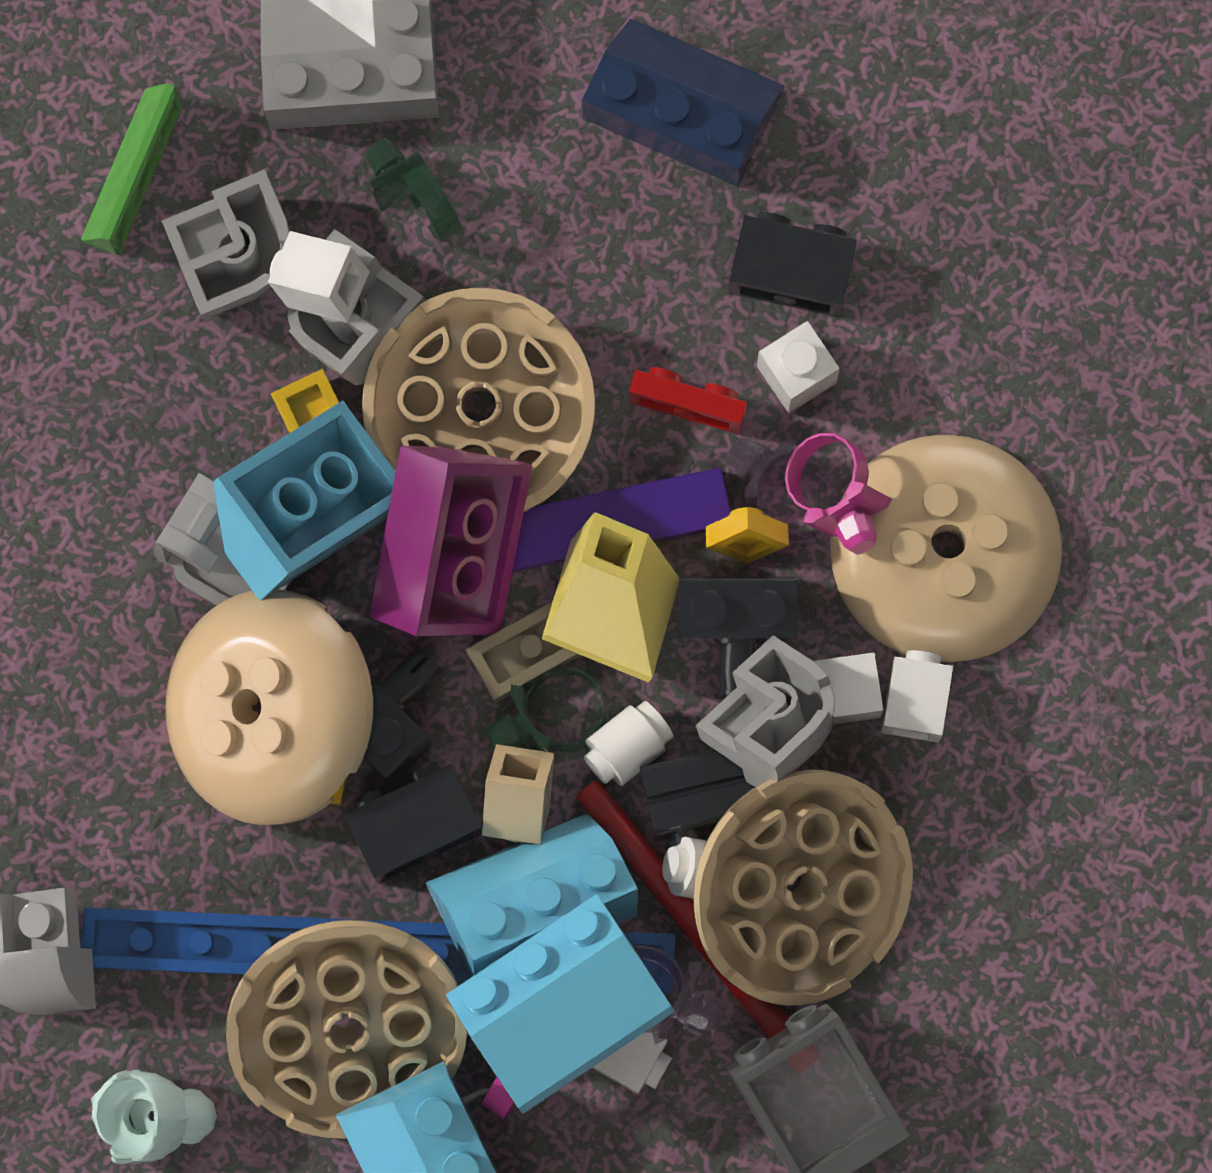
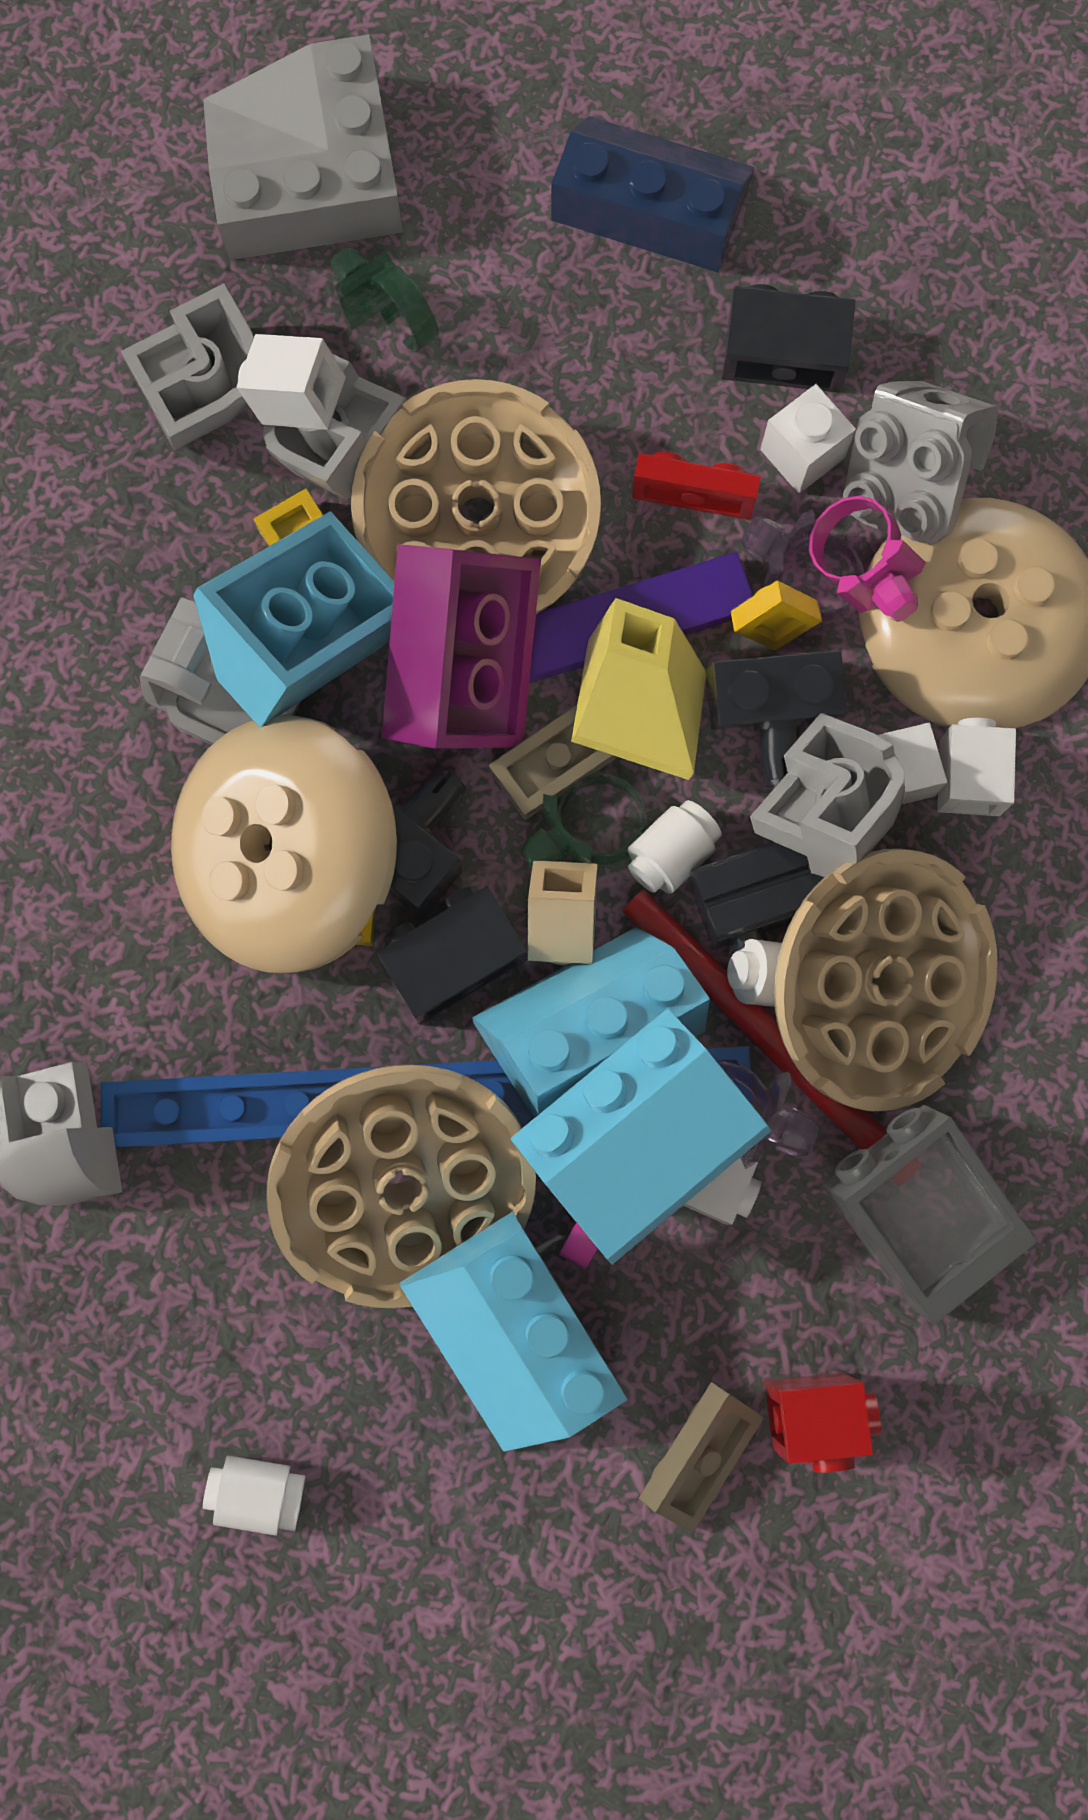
camera: 10 degrees left, 0 degrees up
(133, 168) = (91, 308): bright green slope -> none
(178, 1116) = (208, 1301): light aqua piece -> none
(888, 397) = (917, 456): none -> light grey piece

